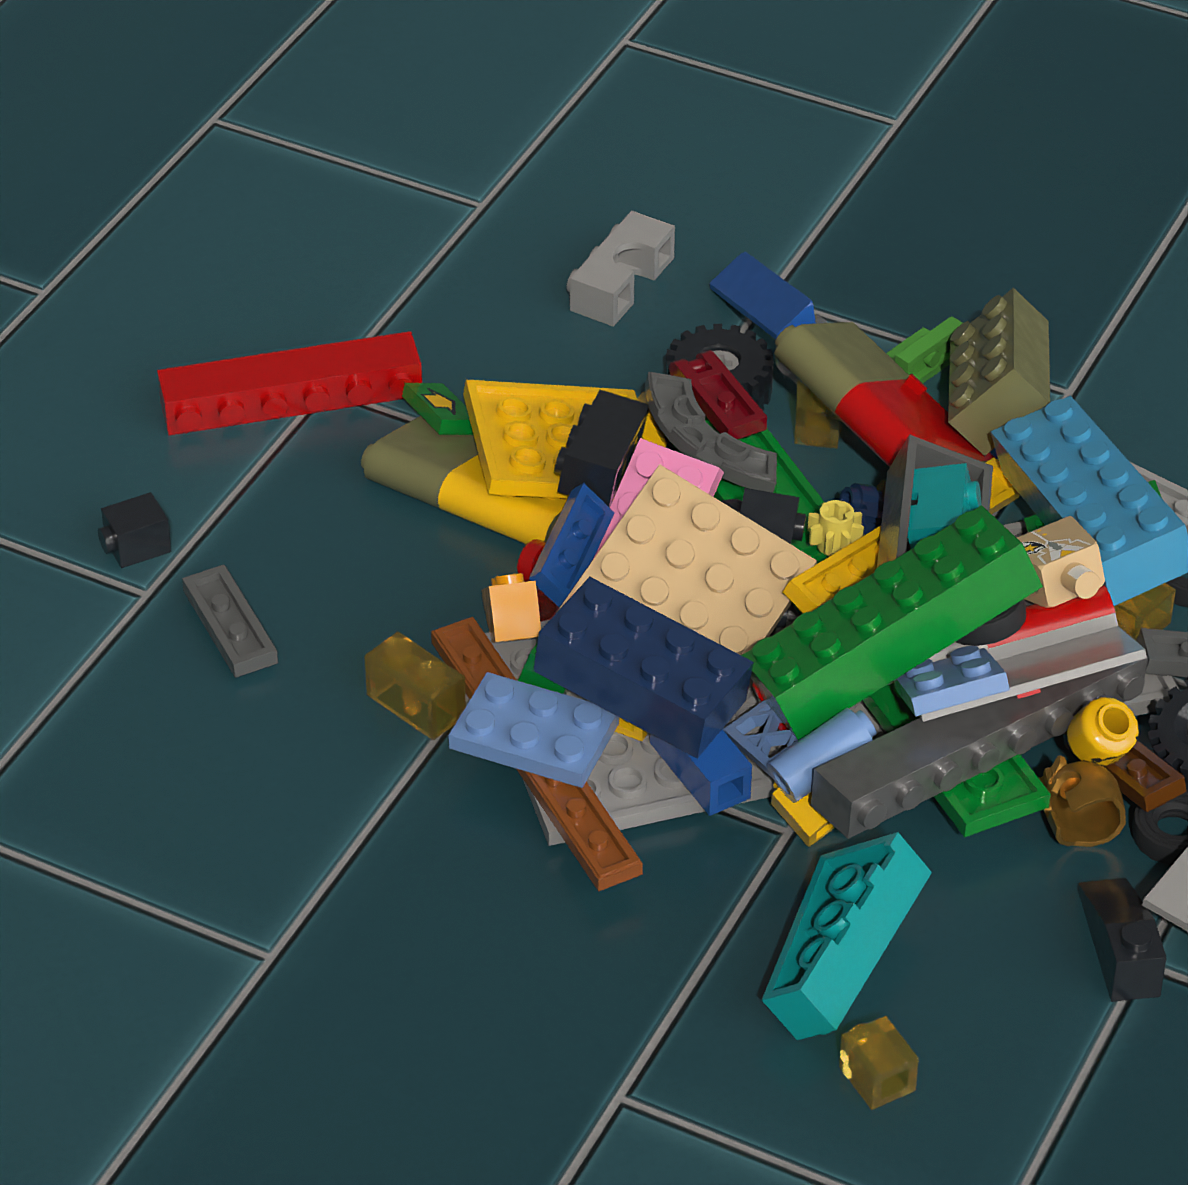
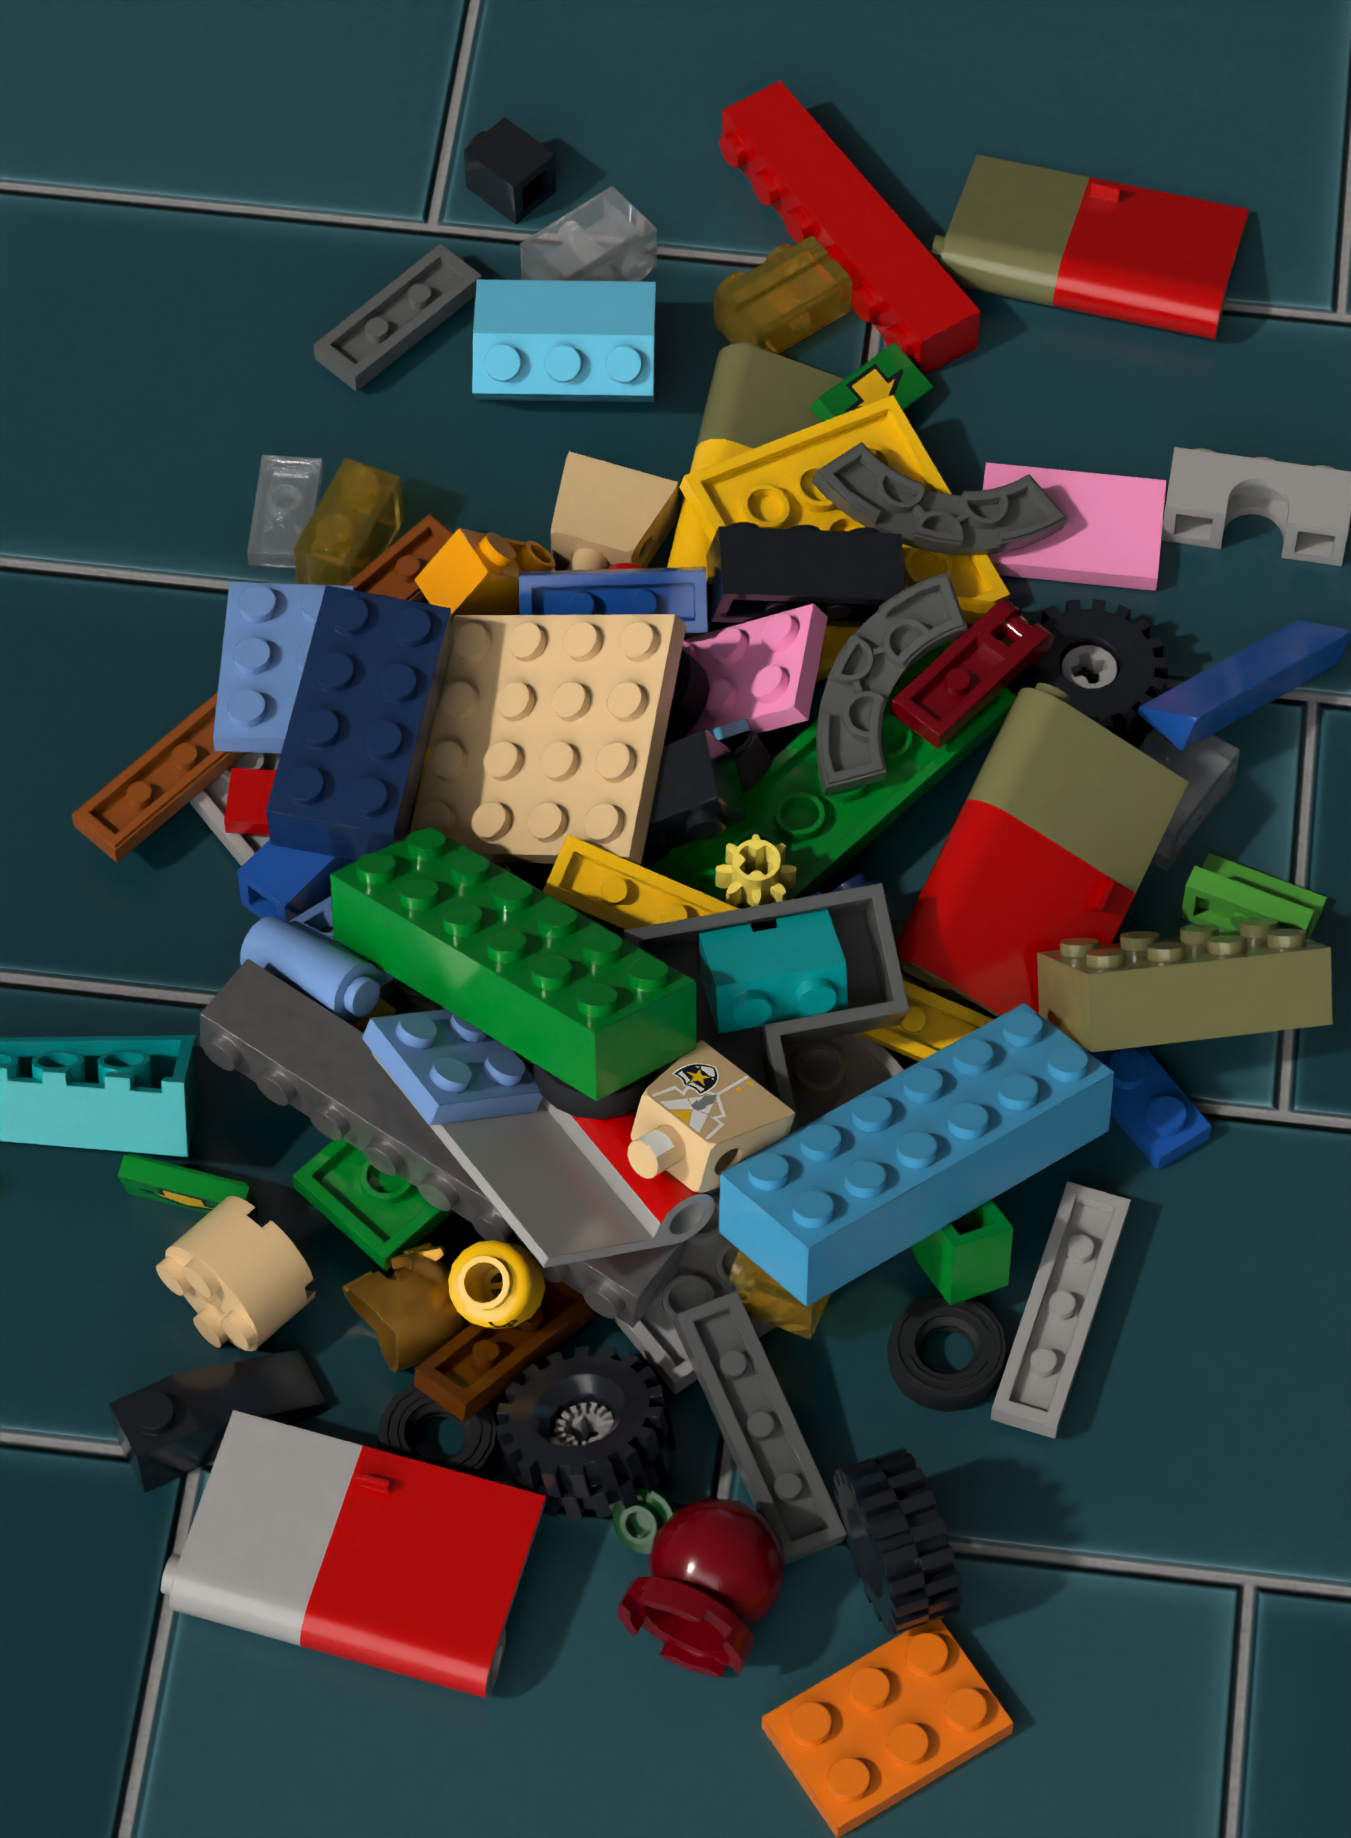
camera: 70 degrees right, 15 degrees up
(238, 509) = (593, 243): none -> clear brick
(317, 530) = (564, 340): none -> medium azure slope
(332, 428) = (783, 298): none -> clear yellow brick
(365, 724) = (282, 508): none -> clear plate
(373, 279) = (1093, 246): none -> door
(468, 555) = (610, 515): none -> tan torso
(558, 403) = (935, 521): none -> dark grey tile
(589, 350) = (1108, 534): none -> bright pink tile
(632, 779) = (248, 801): none -> red tile
(935, 901) = (180, 1185): none -> green tile
(1030, 877) = (237, 1276): none -> tan brick

